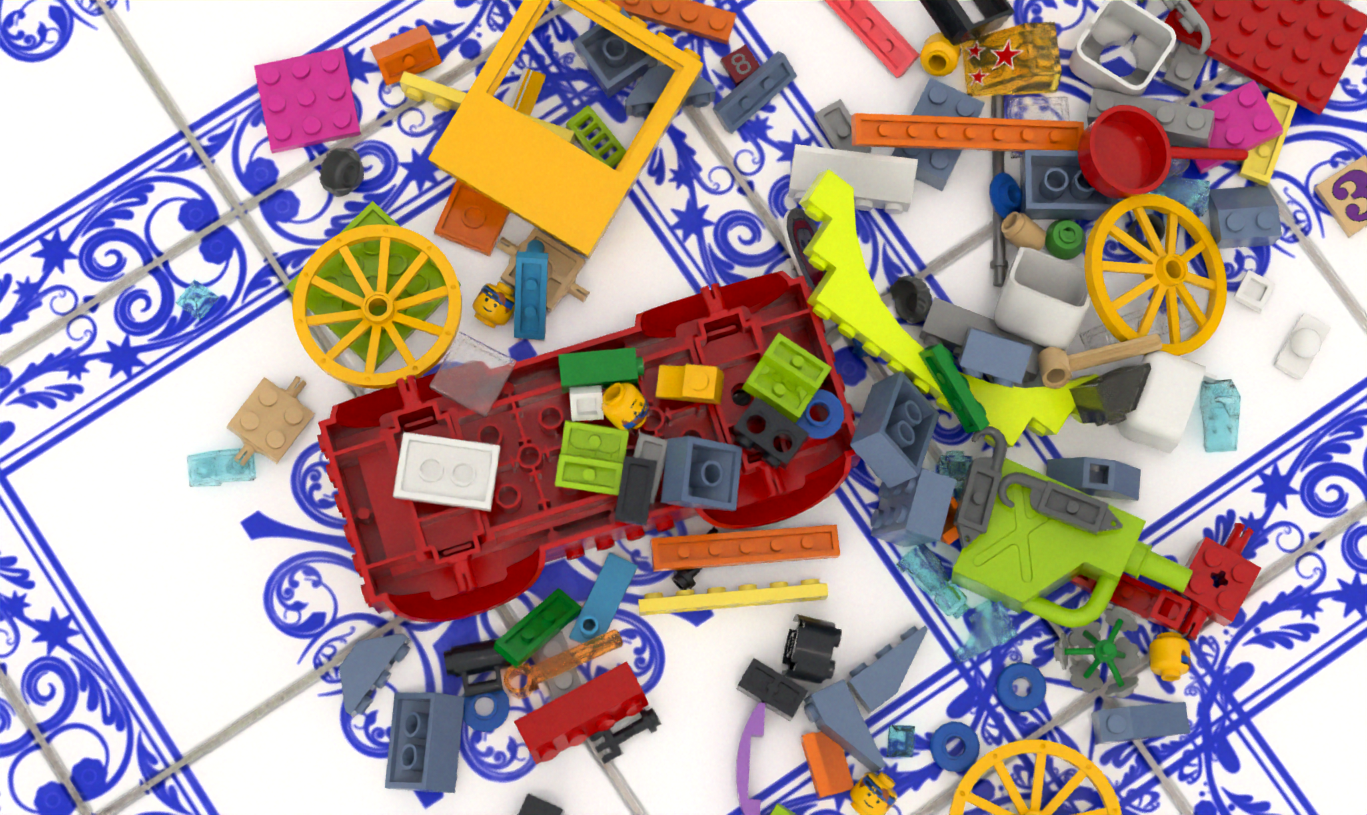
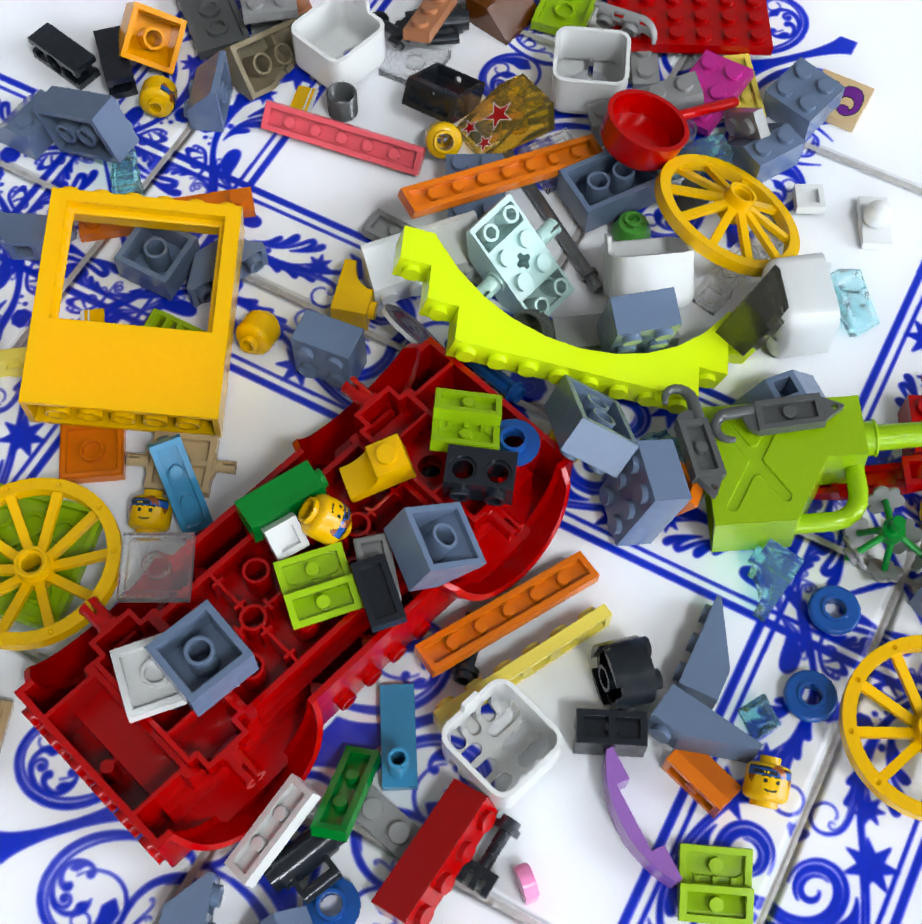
camera: 25 degrees left, 15 degrees down
(467, 627) = (273, 830): none -> white piece
(469, 481) = (202, 657): none -> sand blue brick
(561, 663) = (386, 818): clear orange axle -> none
(640, 769) = (526, 883): none -> bright pink tile
(668, 174) = (258, 332): none -> yellow head
(674, 651) = (500, 696): none -> white piece
(719, 229) = (328, 349): none -> sand blue brick
(739, 64) = (276, 224): dark red tile -> none
(754, 92) = (299, 236): sand blue plate -> none
(766, 185) = (352, 300): none -> yellow arch
(933, 227) = (516, 260): none -> light aqua slope
(933, 579) = (693, 552): clear light blue piece -> none
(954, 388) = (622, 364): green plate -> none
(1005, 195) = (565, 217): blue piece -> none
(1023, 231) = (590, 236): tan brick -> none
(1057, 365) = (698, 315): tan axle -> none
(1238, 185) = (746, 123): none -> light grey plate
(1315, 182) = (802, 98): none -> sand blue brick

